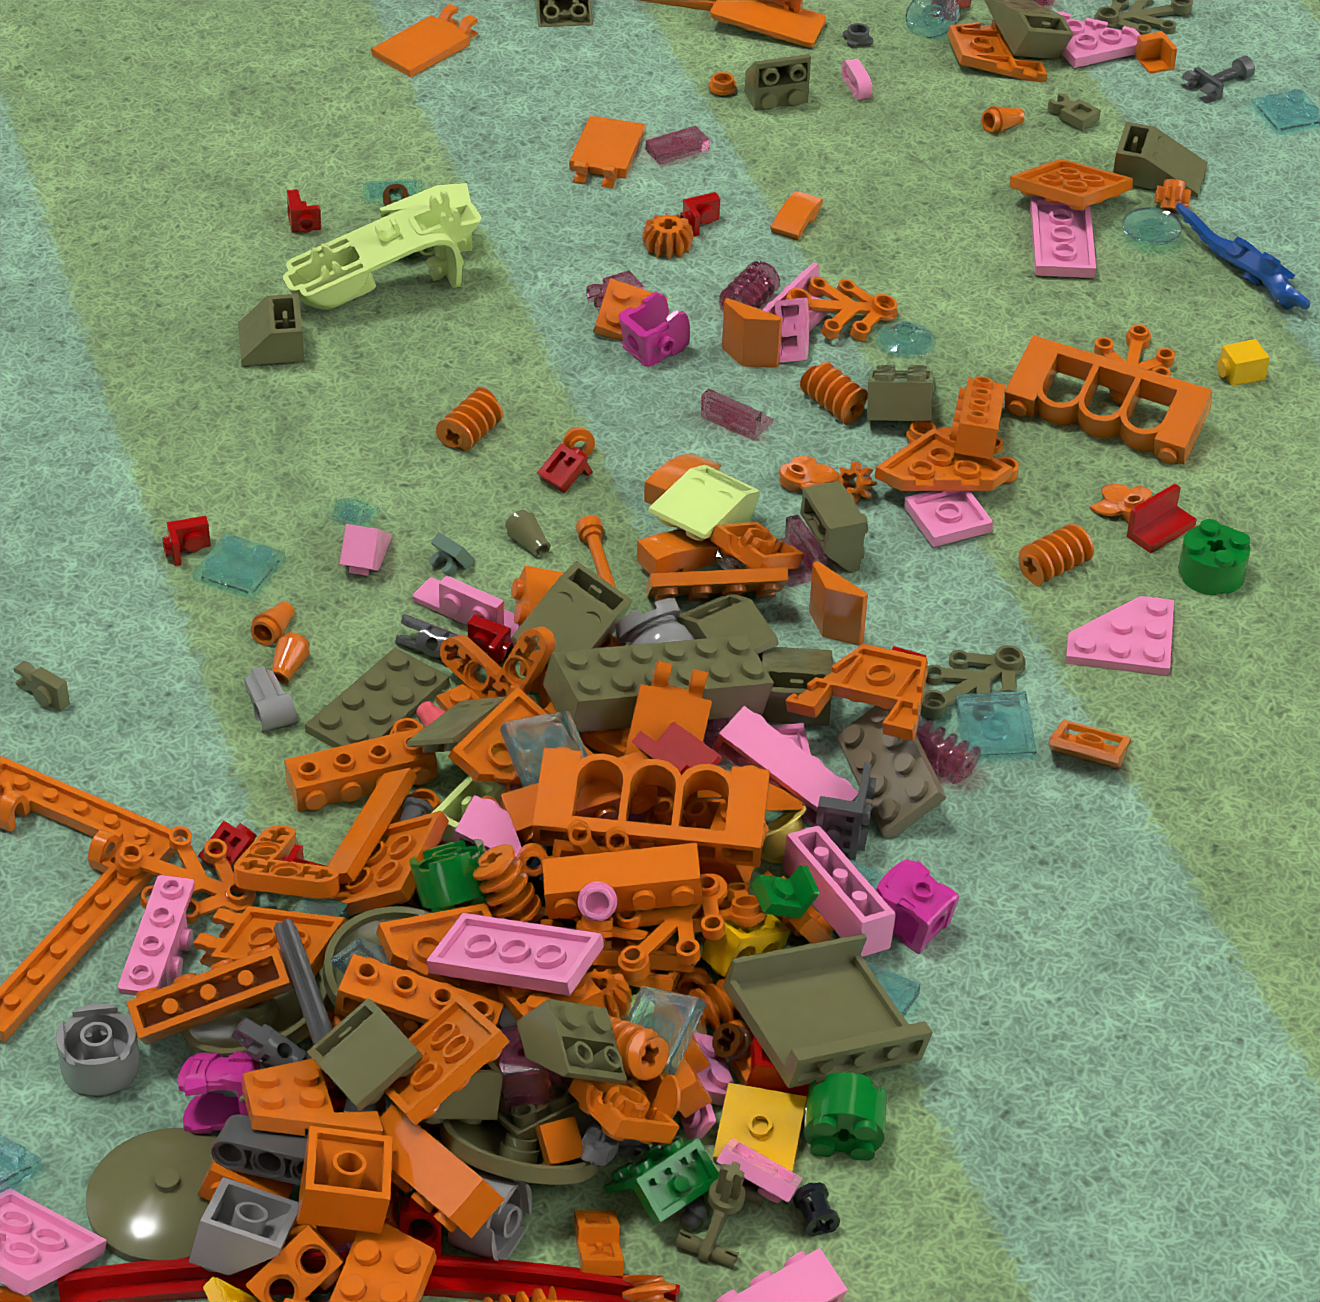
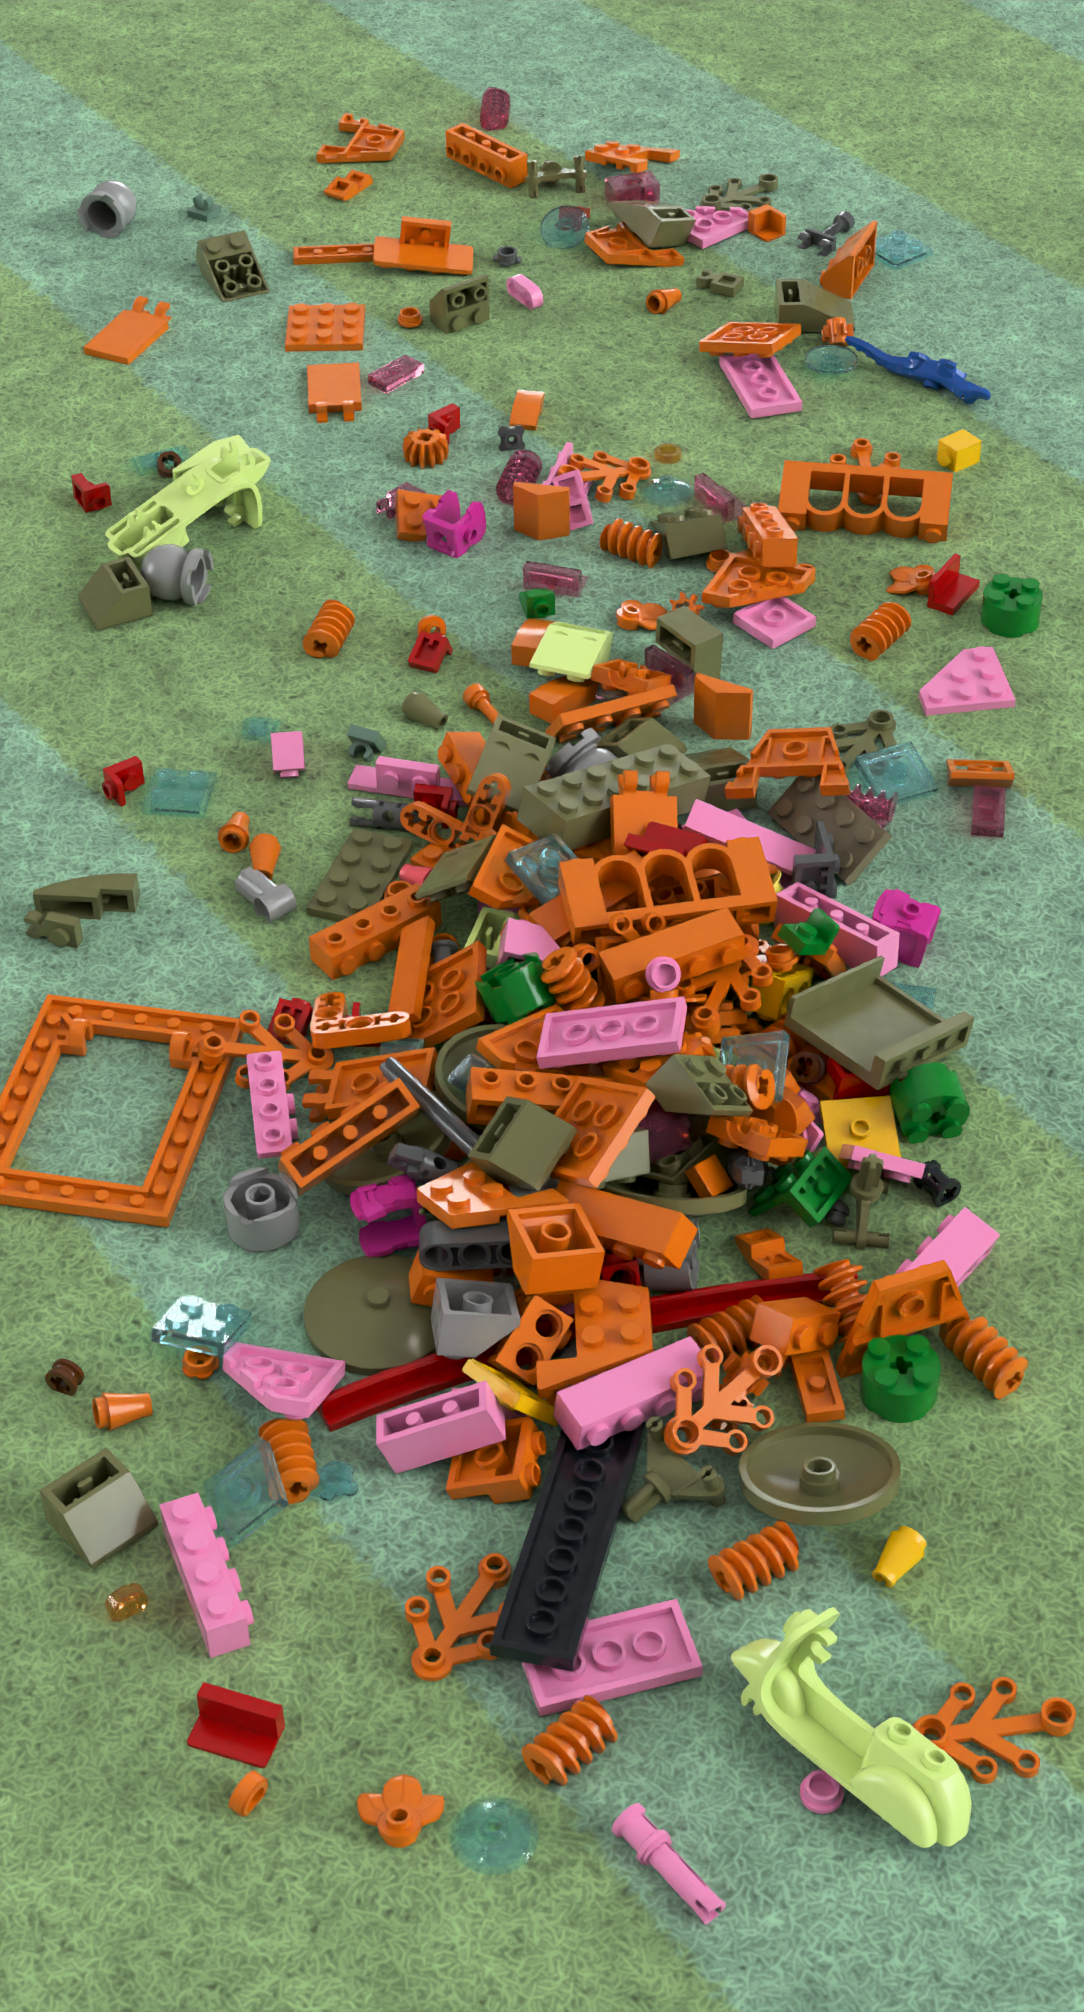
camera: 15 degrees left, 0 degrees up
(92, 659) = (89, 895): none -> olive slope
(343, 323) = (177, 573): none -> light grey tile
(630, 77) = (325, 327): none -> orange plate
(704, 438) = (538, 603): none -> green bracket
(769, 238) = (511, 431): none -> dark grey plate
(925, 297) = (667, 453): none -> clear orange tile
(954, 362) = (717, 498): none -> clear pink panel
(1078, 792) = (988, 811): none -> clear pink plate
(1225, 119) = (851, 263): none -> orange slope

